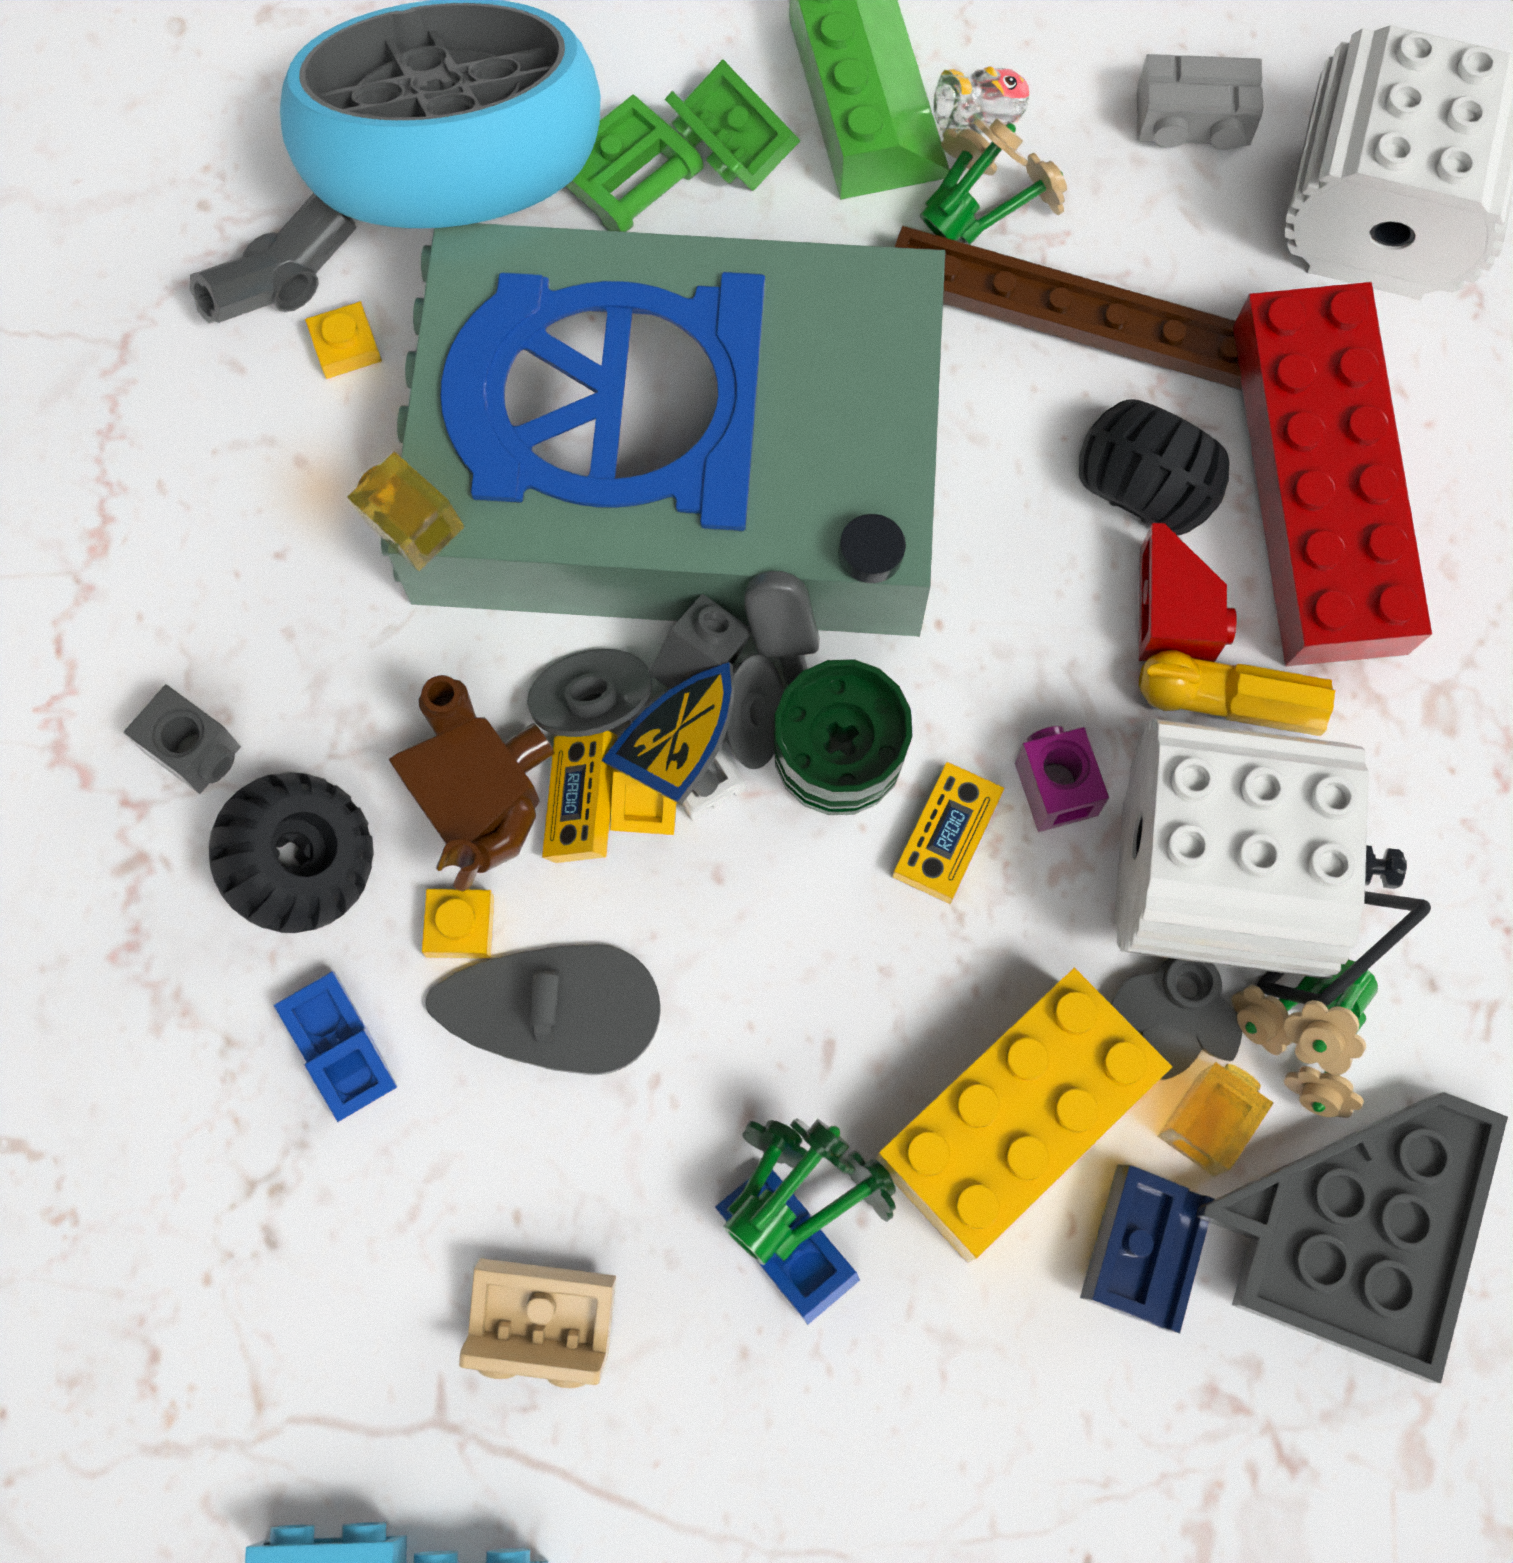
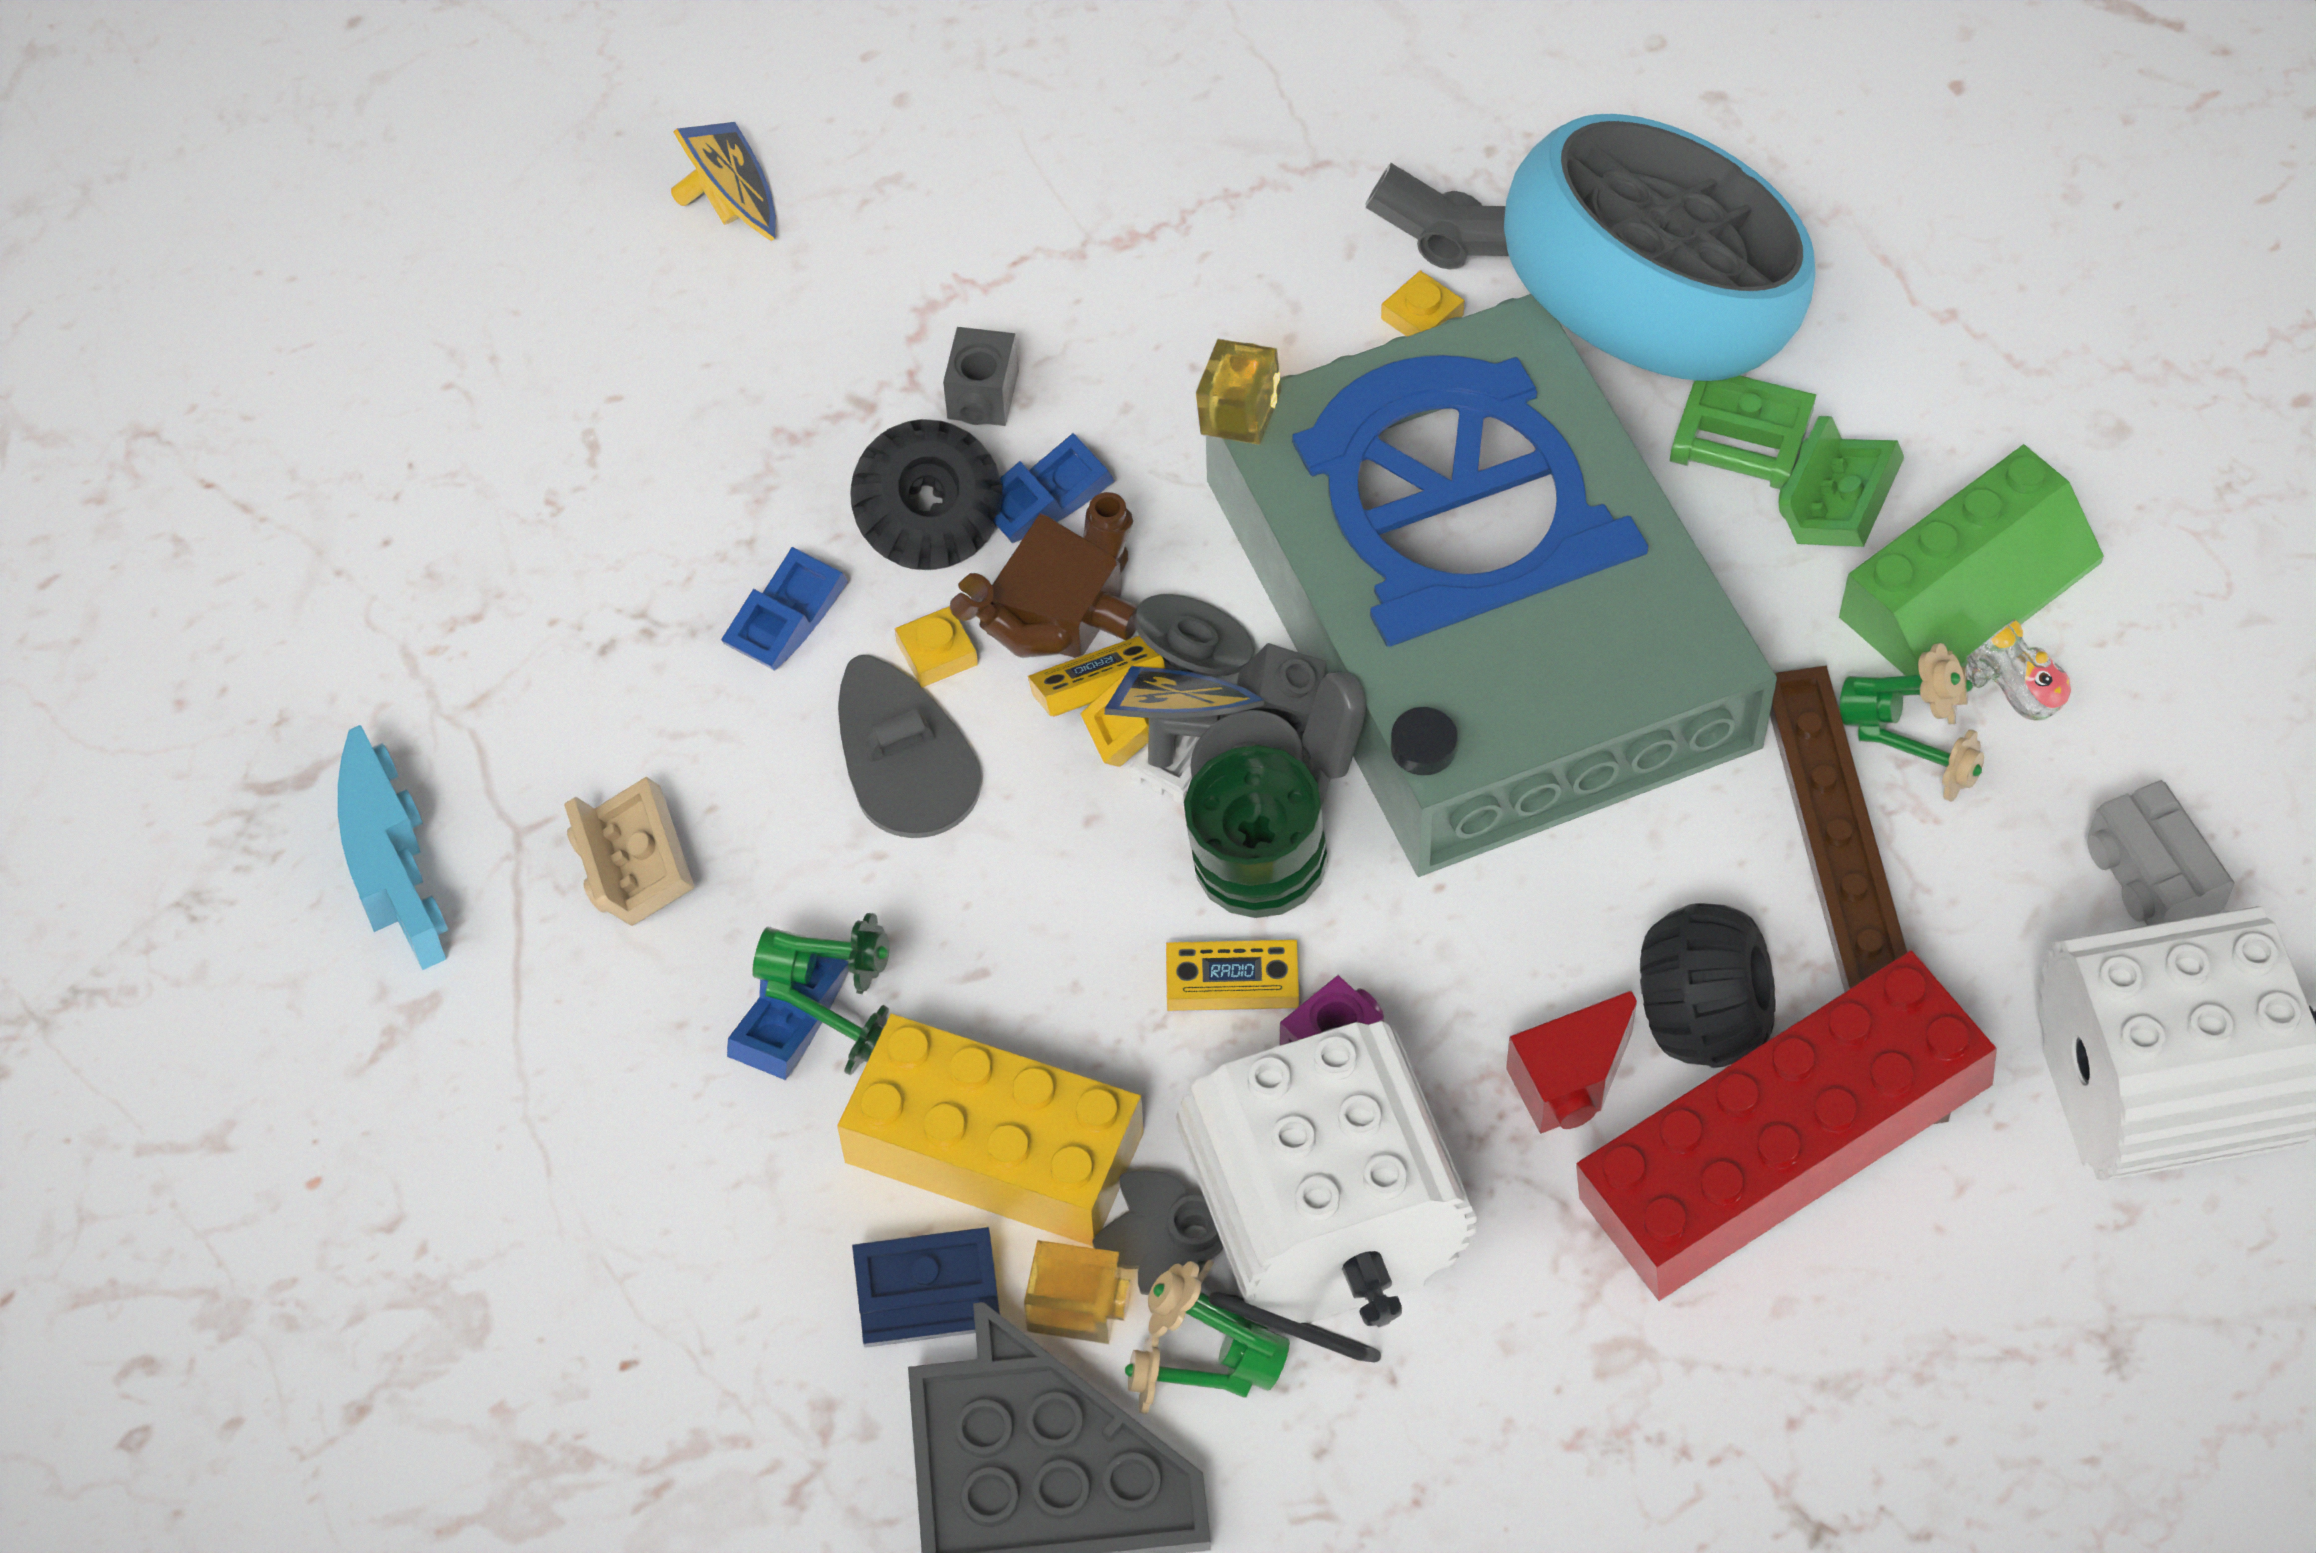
camera: 65 degrees right, 15 degrees down
(344, 739) = (1052, 487): none -> blue slope
(1238, 692) = (1513, 1152): yellow piece -> none

